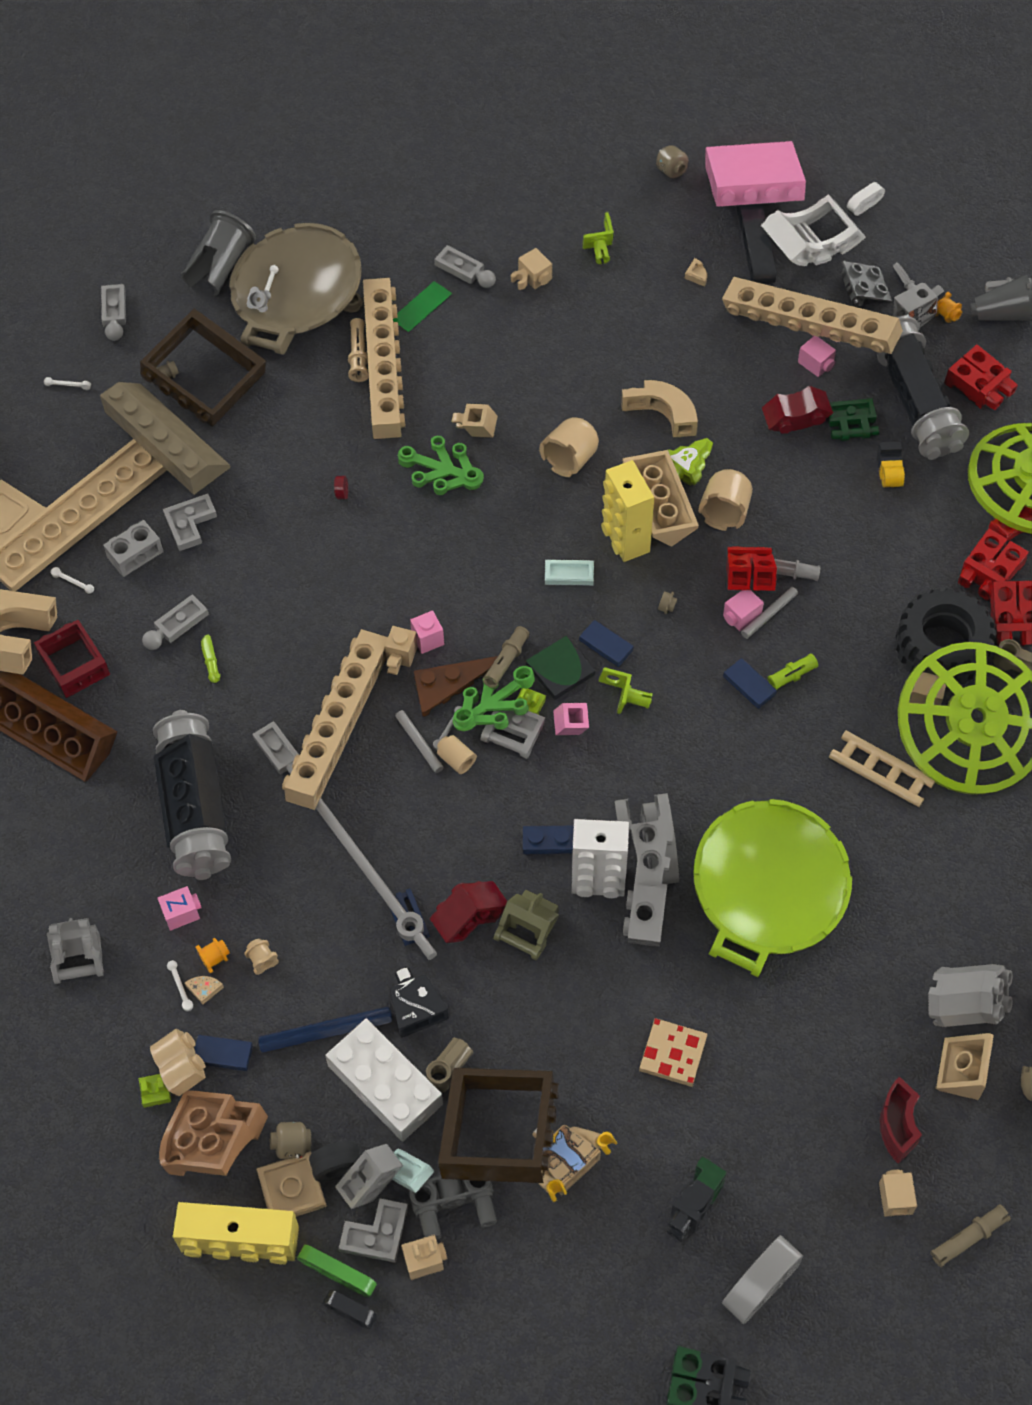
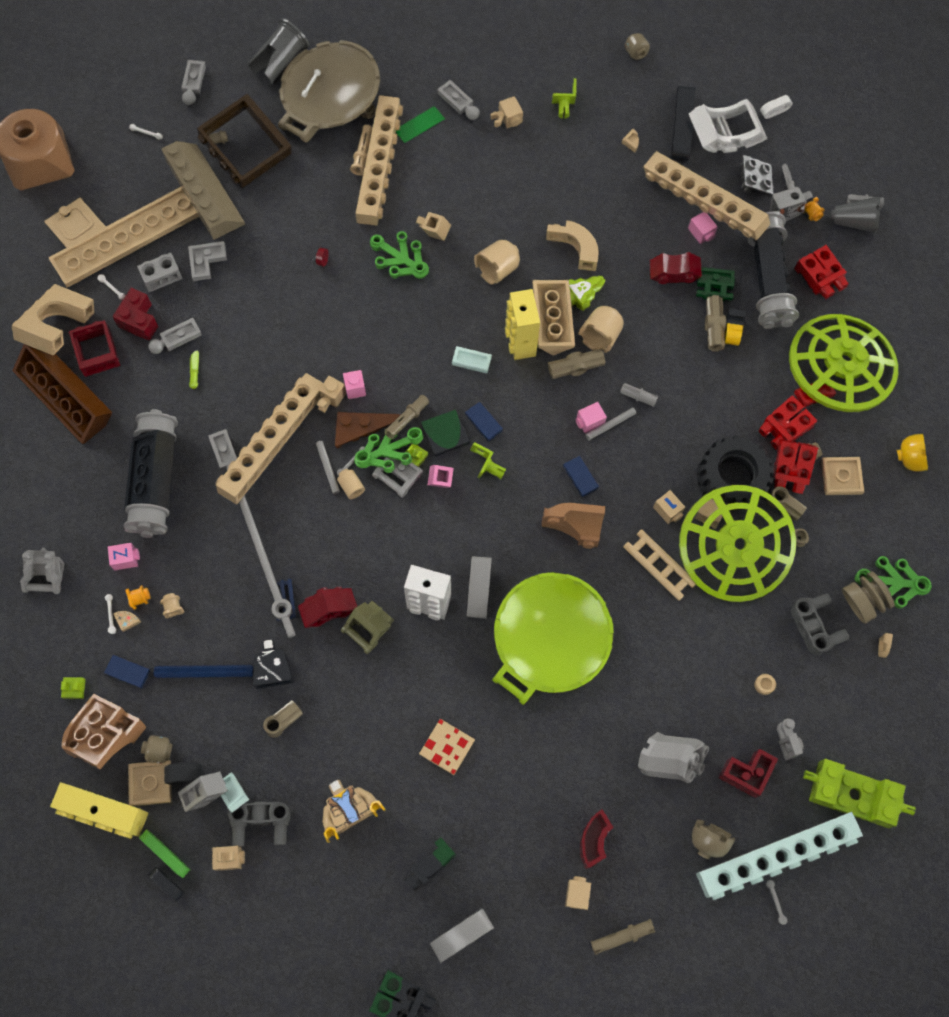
camera: 10 degrees right, 10 degrees up
(113, 608) = (133, 315): none -> dark red brick
(178, 1062) = (92, 673): tan brick -> none
(252, 299) = (294, 95): light grey plate -> none
(379, 1240) = (201, 837): light grey plate -> none
(384, 1079) = (234, 720): white brick -> none
(498, 1168) = (288, 733): dark brown window -> none
(548, 839) = (401, 563): dark blue plate -> none
(648, 888) = (458, 624): light grey brick -> none
(667, 602) = (537, 399): dark tan plate -> none
(705, 549) = (576, 363): none -> dark tan piece
(749, 561) = (604, 381): red hips -> none
(755, 173) = (696, 69): bright pink brick -> none
(762, 733) = (576, 520): none -> medium nougat slope
(806, 664) = (624, 471): lime pin -> none
(866, 465) = (715, 323): none -> dark tan piece
(874, 696) = (669, 507): none -> tan brick
(965, 1065) = (655, 807): tan slope -> none

